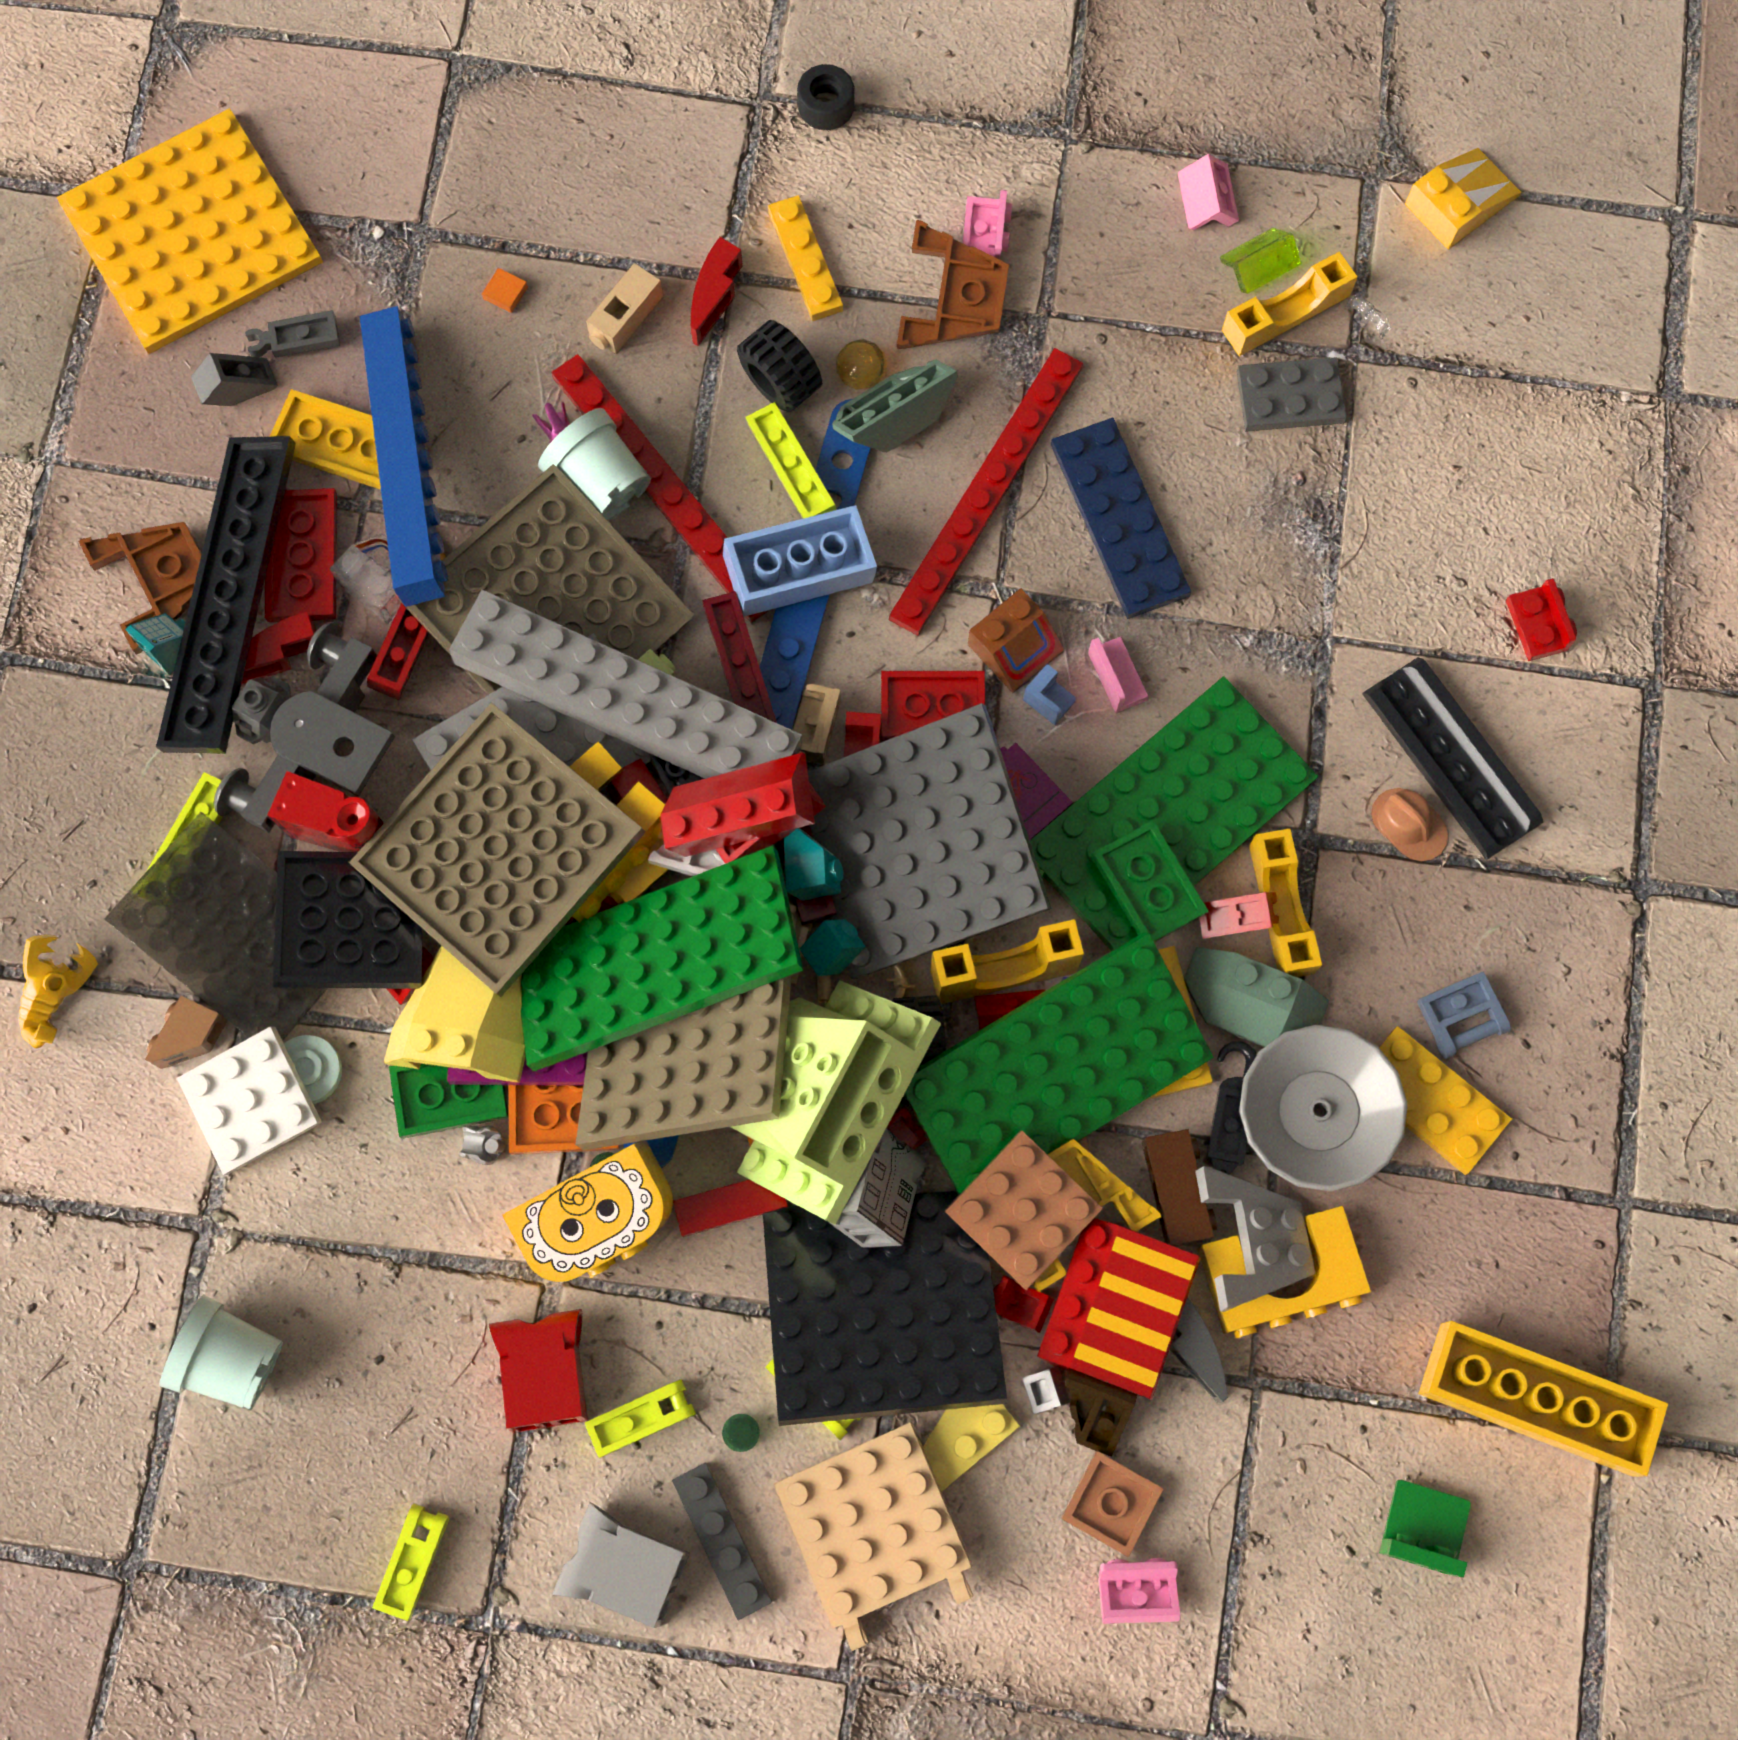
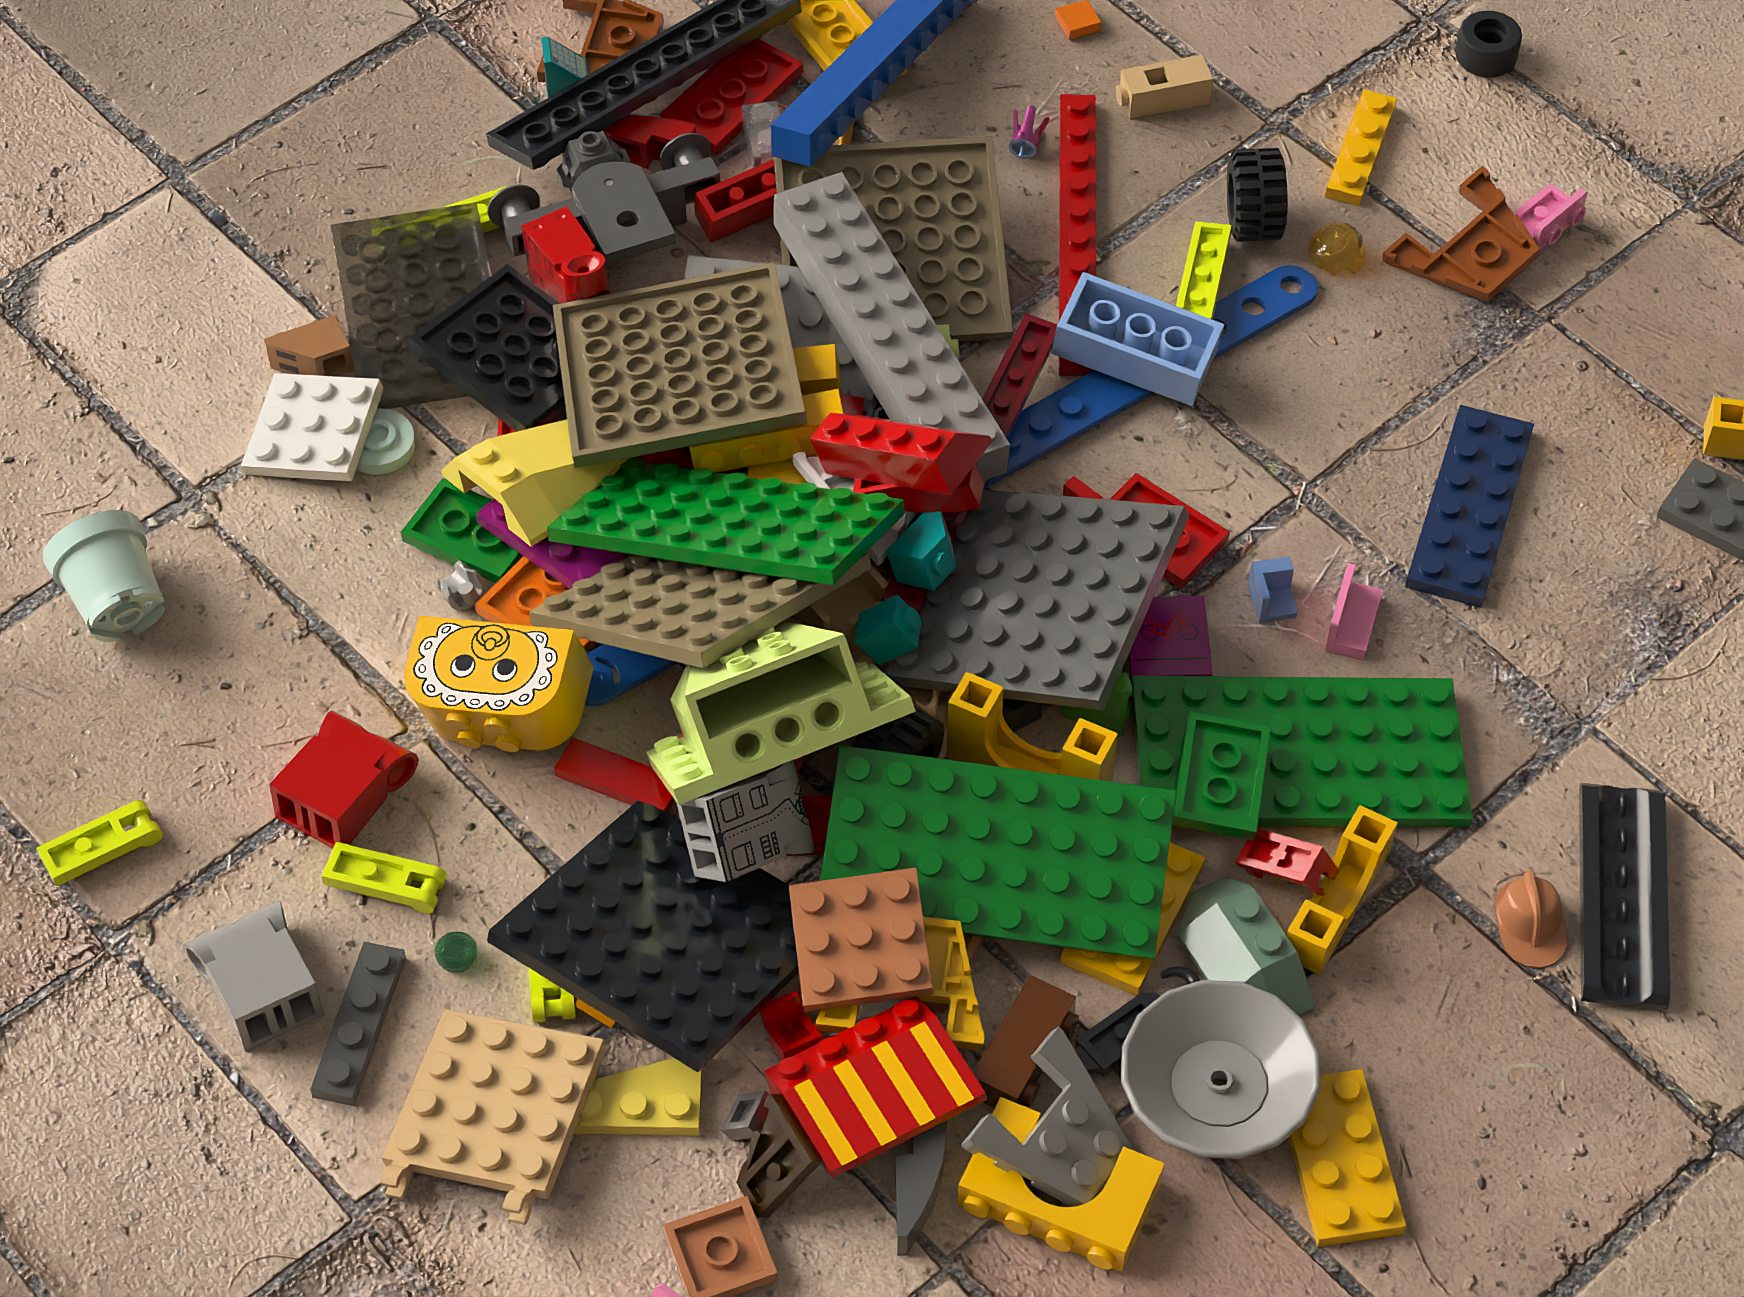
camera: 40 degrees right, 20 degrees down
(47, 987) = (245, 247): yellow animal -> none
(597, 463) = (1031, 166): light aqua piece -> none
(714, 287) = (1255, 118): red slope -> none
(817, 720) = (1046, 474): tan hinge -> none
(897, 406) = (1334, 293): sand green wedge -> none
(985, 492) = (1362, 408): red plate -> none
(1015, 640) = (1281, 523): dark orange slope -> none
(1460, 1003) = (1440, 1094): sand blue plate -> none

